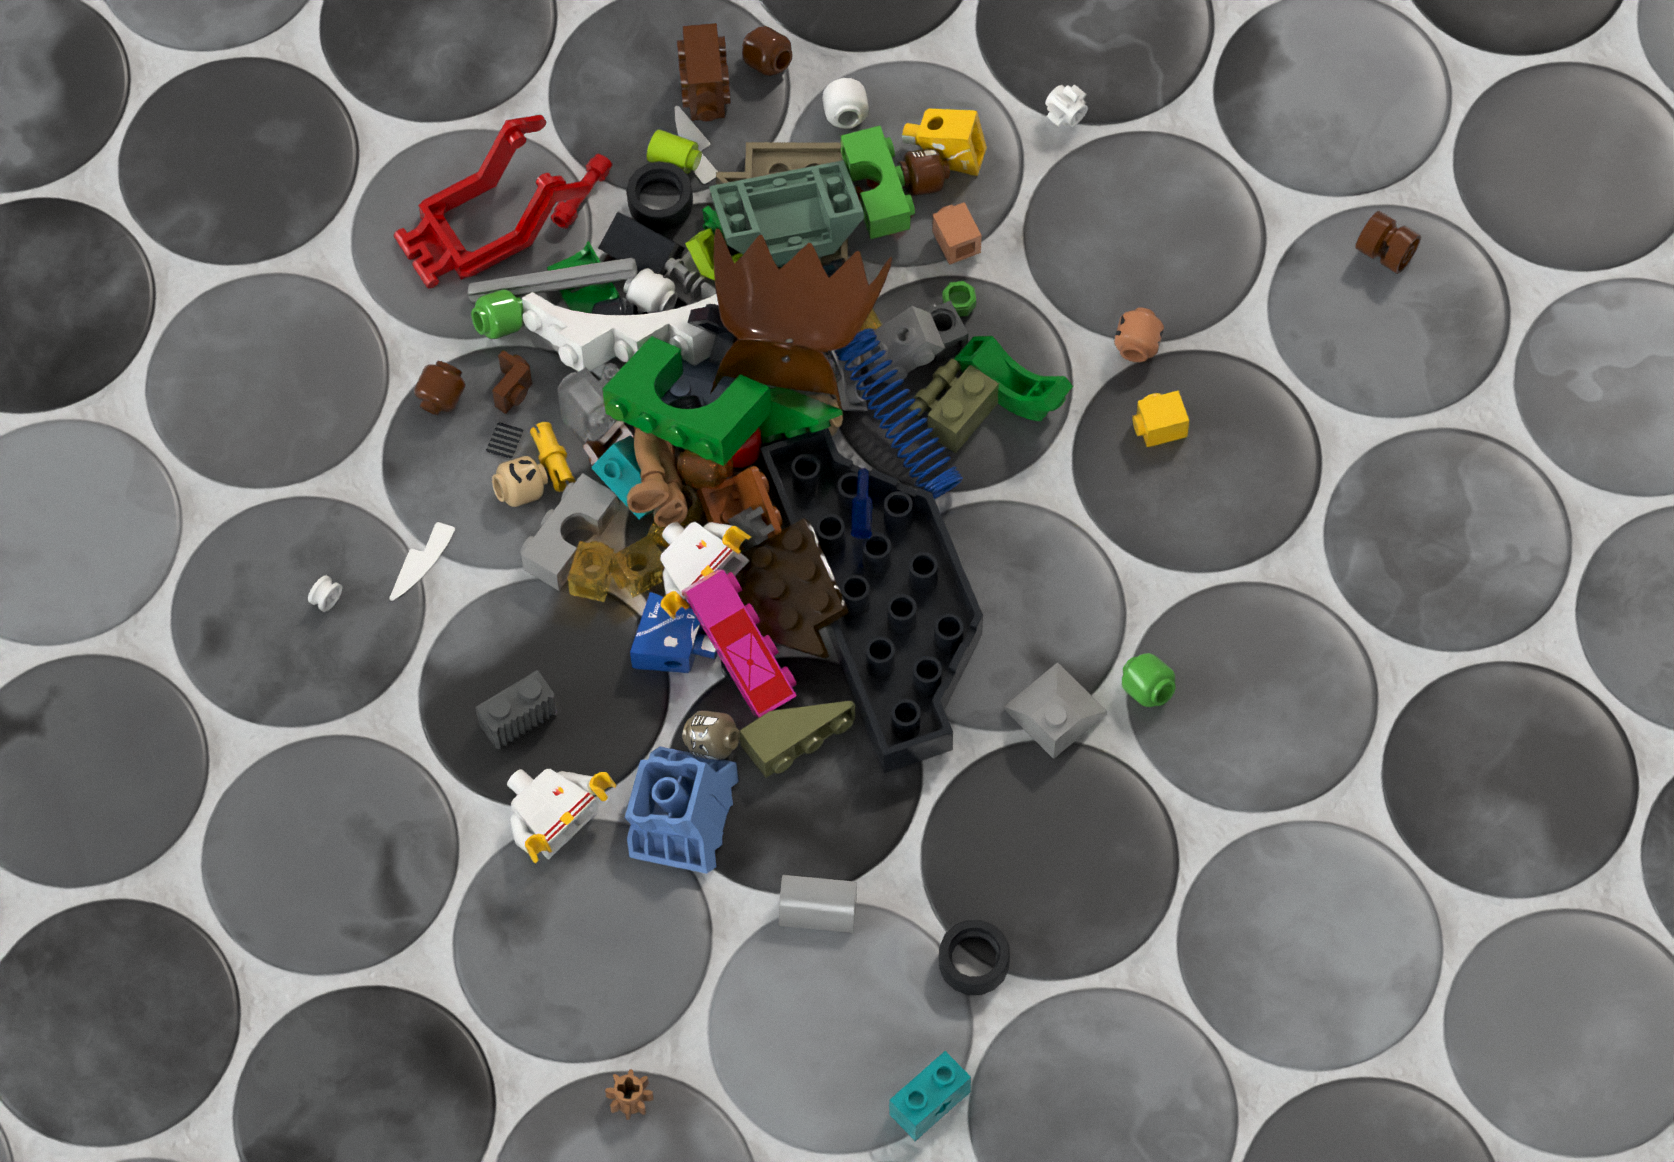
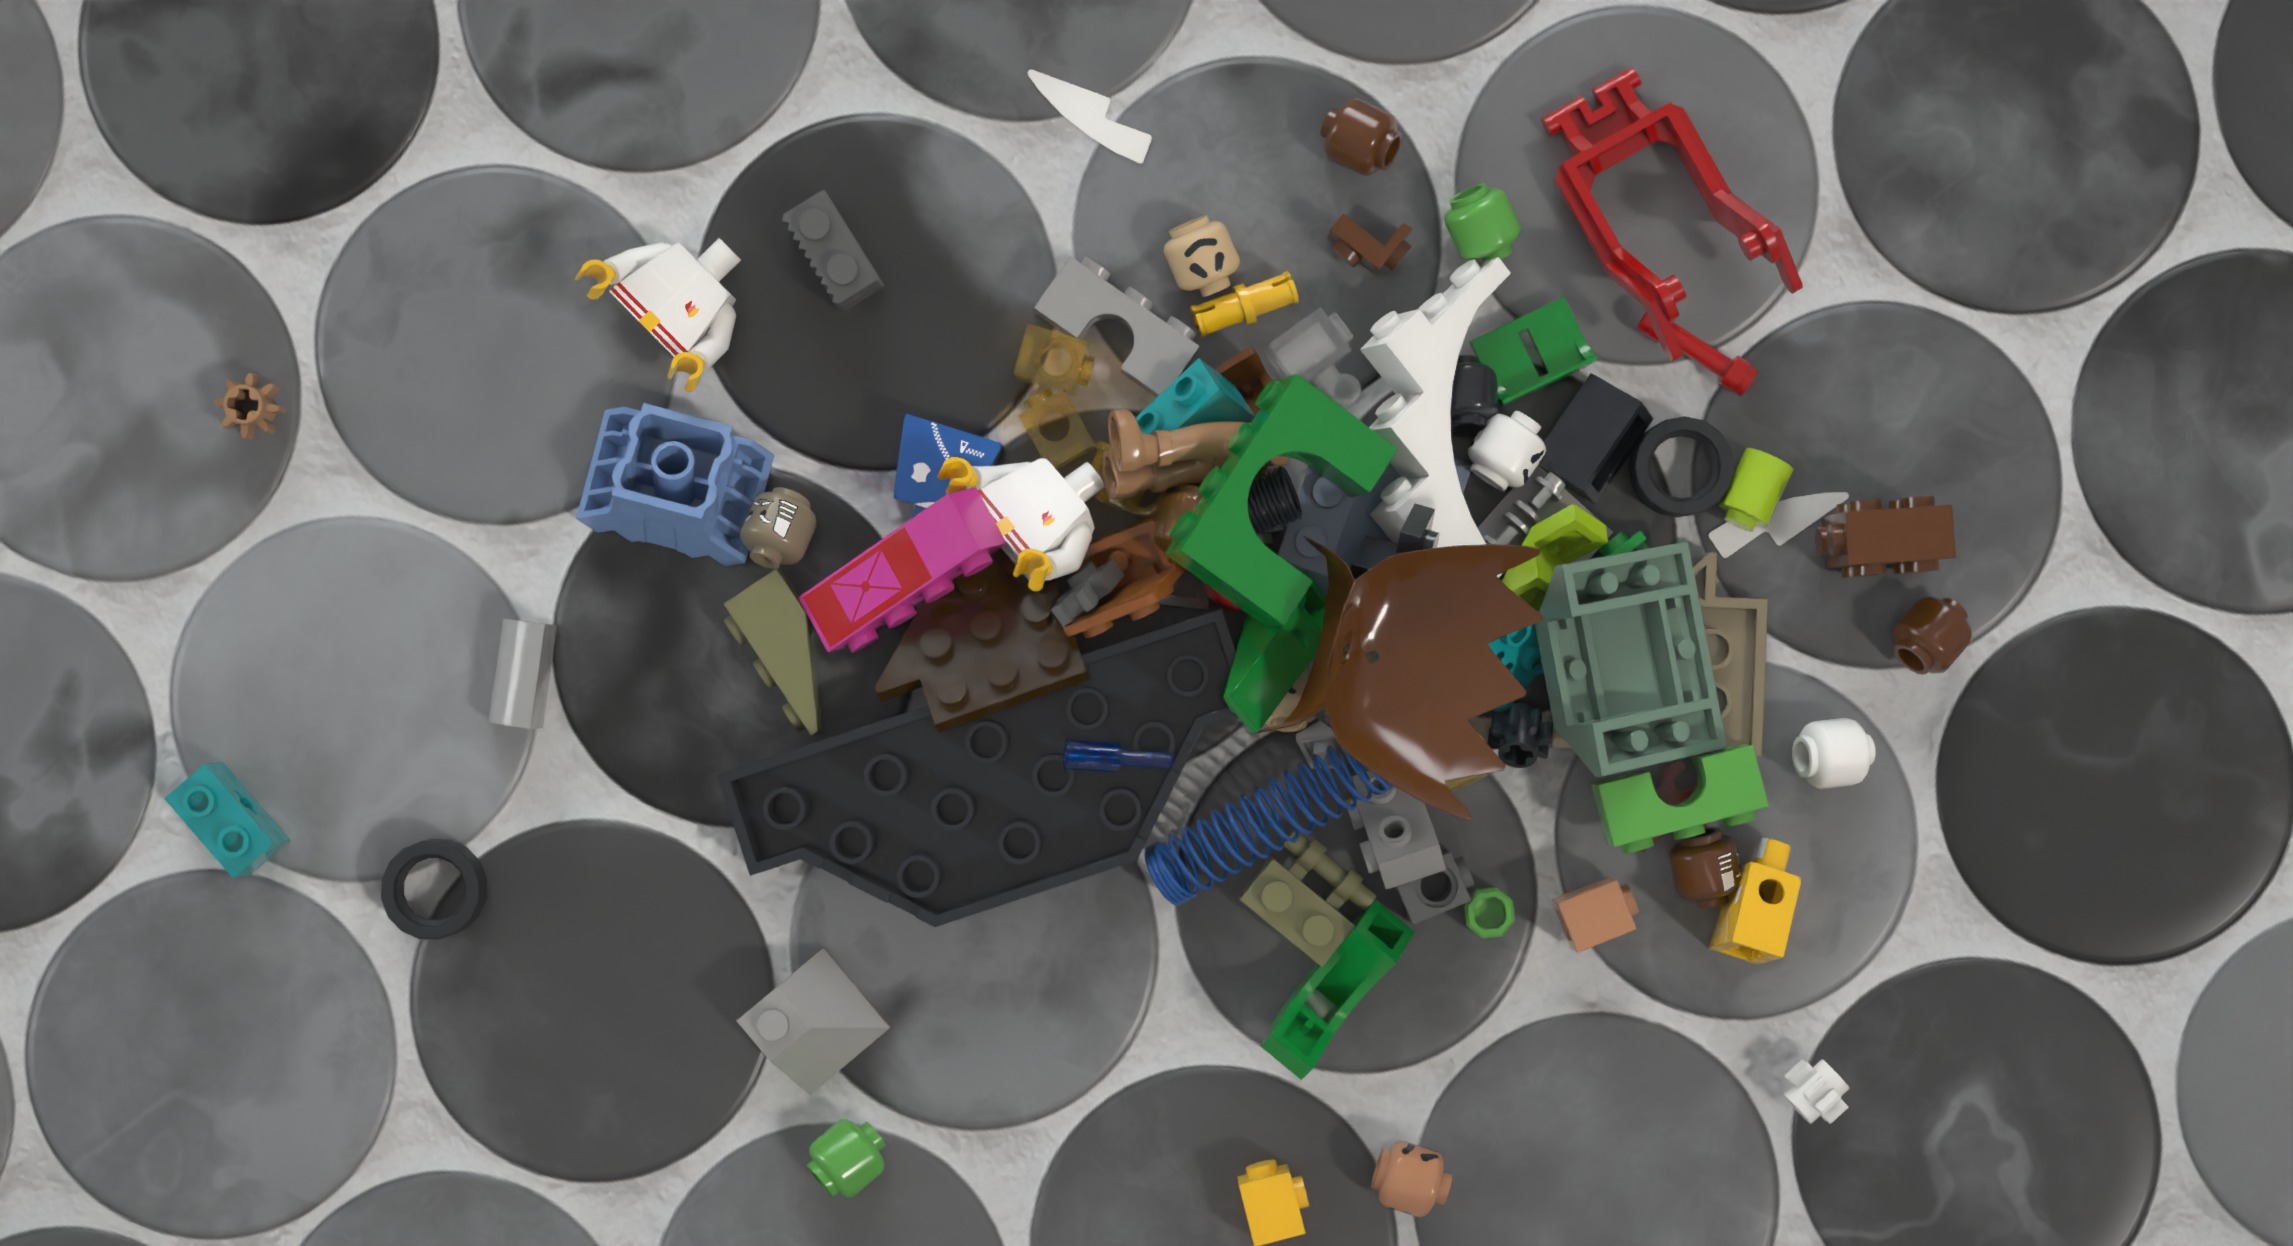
camera: 85 degrees right, 25 degrees up
(504, 440) = (1282, 235): sticker -> none
(557, 279) = (1532, 306): light grey axle -> none

